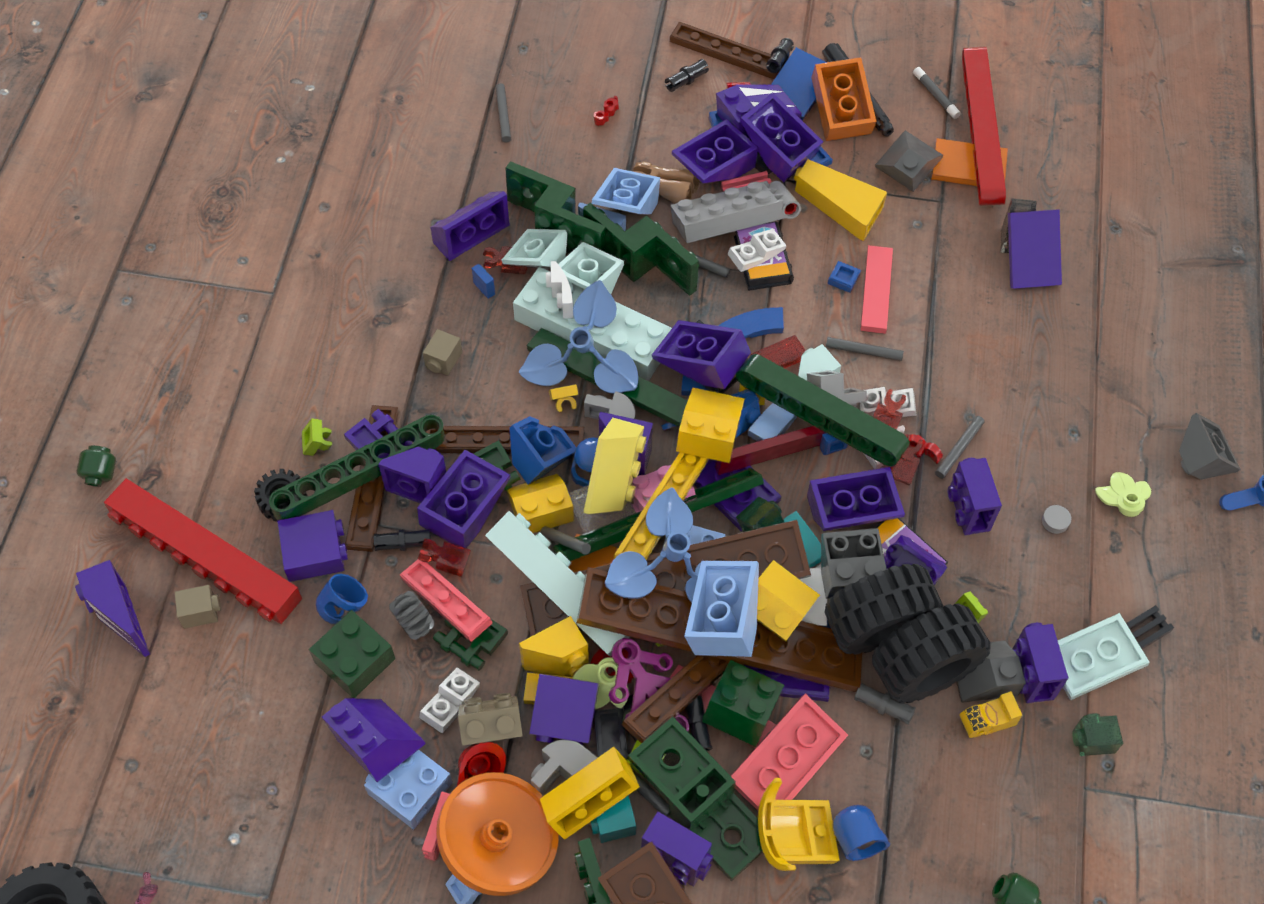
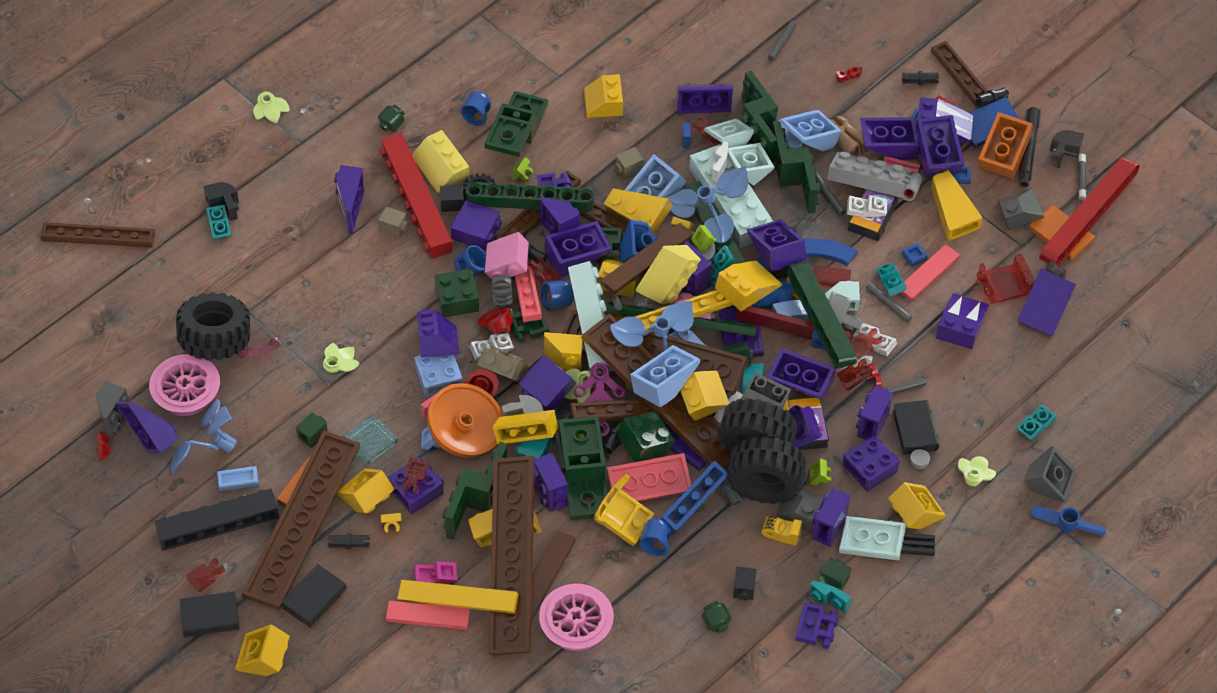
camera: 35 degrees right, 5 degrees down
(196, 382) = (476, 102): none -> blue helmet
(205, 488) = (440, 162): none -> light yellow slope
(253, 527) = (451, 198): none -> black panel
(257, 846) = (341, 358): none -> yellowish green plate
(269, 383) = (516, 123): none -> dark green bracket
(351, 288) = (604, 97): none -> yellow slope
(385, 565) = (507, 256): none -> bright pink brick
(431, 659) = (497, 320): none -> red piece
(489, 569) = (561, 294): none -> blue helmet
(492, 367) = (656, 179): none -> light blue slope
(499, 403) = (639, 207): none -> yellow wedge
(565, 464) = (642, 261): none -> reddish brown tile
(610, 396) = (703, 238): none -> lime tile
(658, 411) = (722, 260): none -> teal slope
(845, 320) = (891, 279): none -> teal slope
(866, 747) = (695, 496): none -> blue brick
(895, 67) = (1065, 143): none -> clear smoke brick
(960, 323) = (962, 321): none -> dark purple slope
(965, 248) = (1006, 281): none -> clear red panel
(1010, 823) = (744, 583): none -> black brick
(1014, 560) = (870, 463): none -> dark purple brick
(1023, 483) = (915, 426): none -> black piece
(1107, 583) = (916, 506): none -> yellow slope
(1108, 770) = (824, 593): none -> teal slope
(1125, 823) = (810, 622): none -> dark purple plate
(1134, 395) = (1036, 423): none -> teal slope

